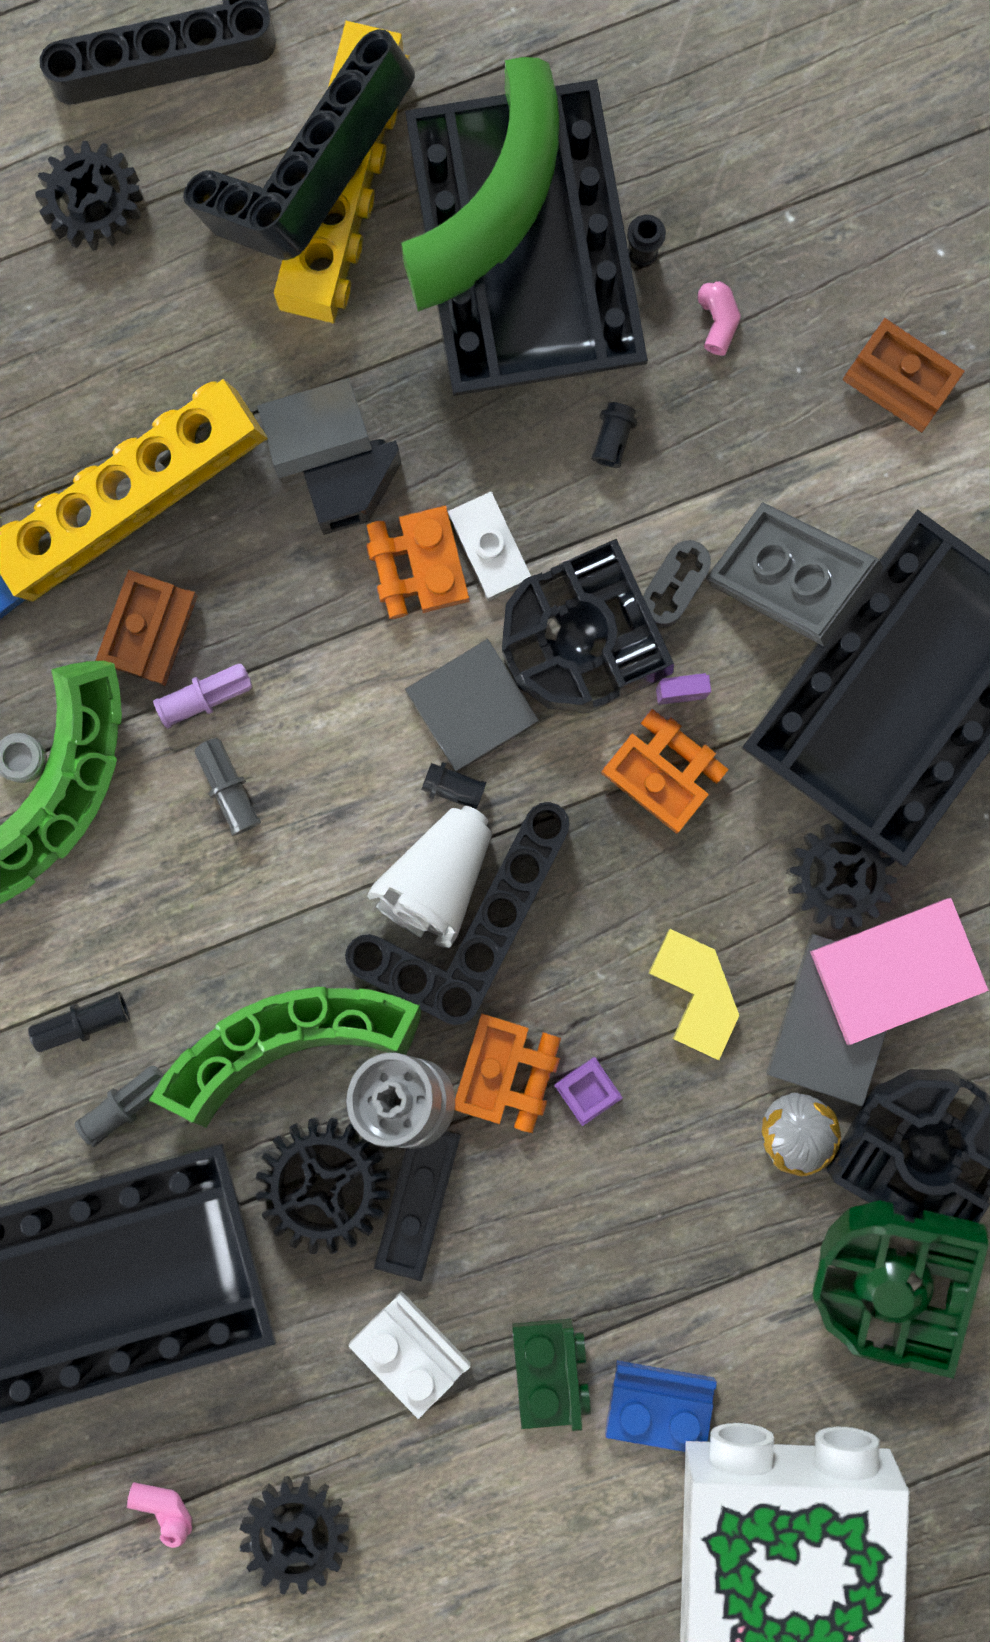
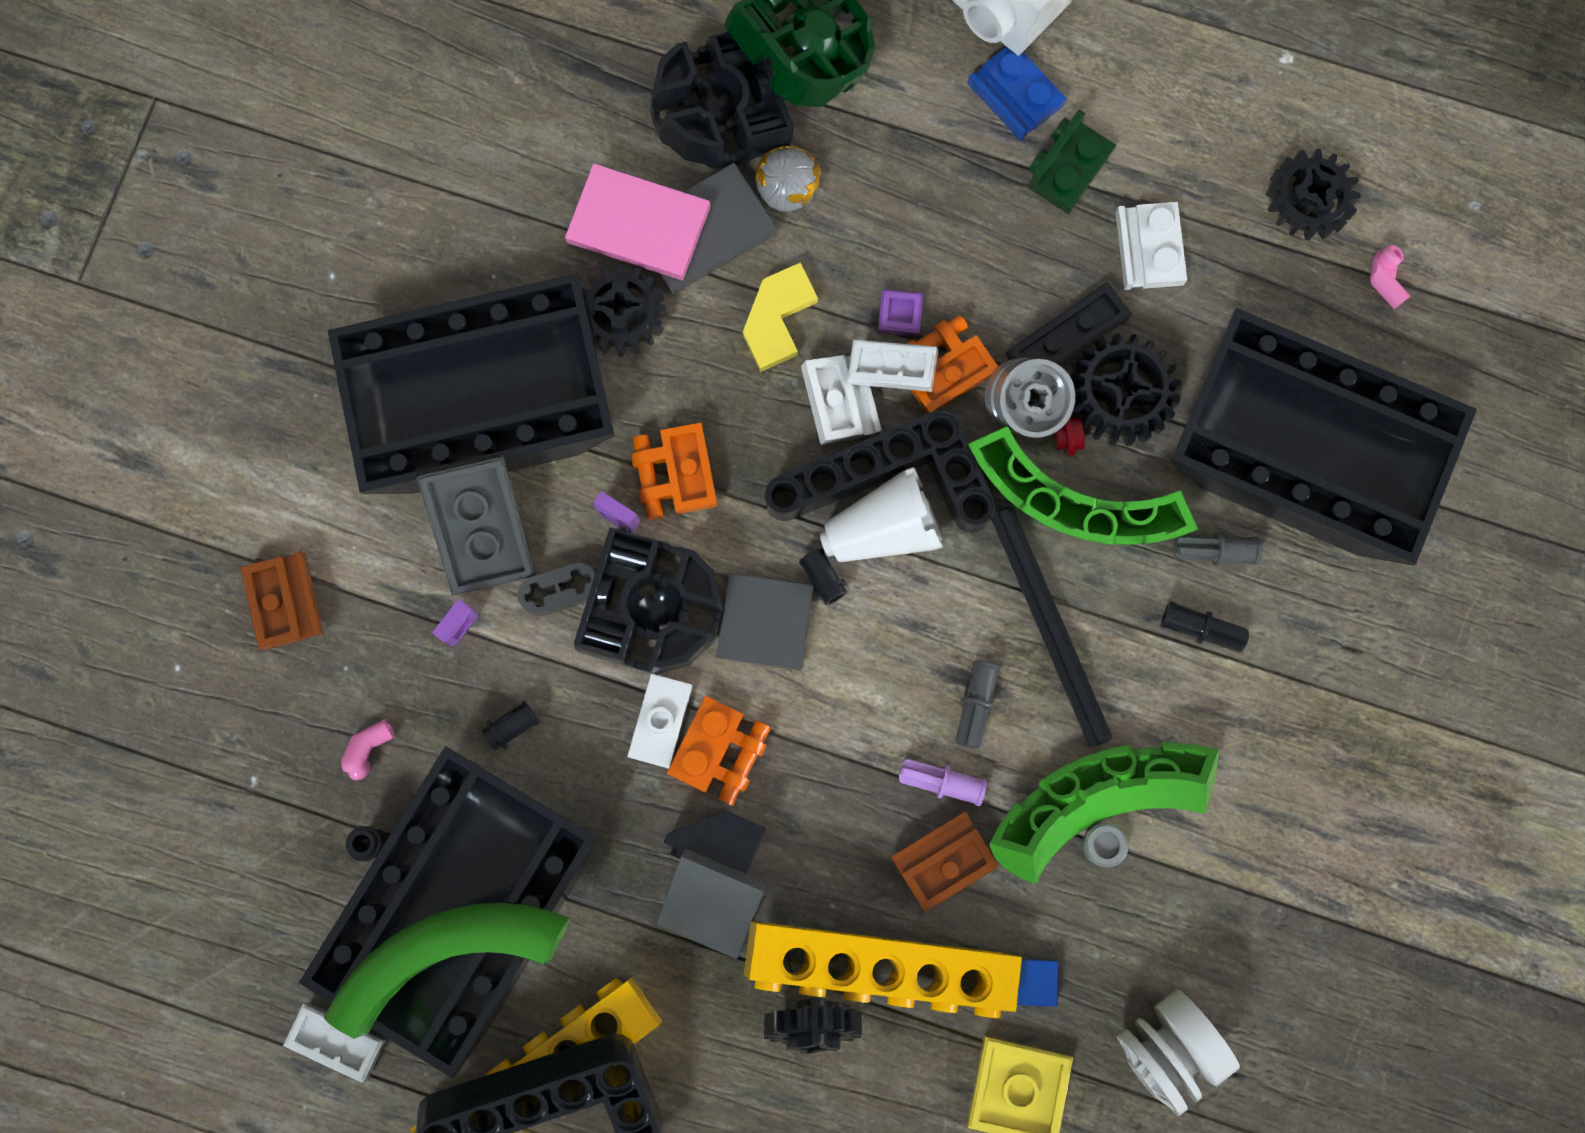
camera: 140 degrees left, 5 degrees down
(144, 395) = (812, 1025): none -> black gear
(217, 910) = (1051, 627): none -> black axle
(334, 1098) = (1070, 437): none -> dark red plate
(549, 1026) = (892, 365): none -> white plate
(556, 51) = (332, 1048): none -> white plate
(573, 962) = (839, 408): none -> white plate
(736, 479) = (455, 623): none -> medium lavender tile

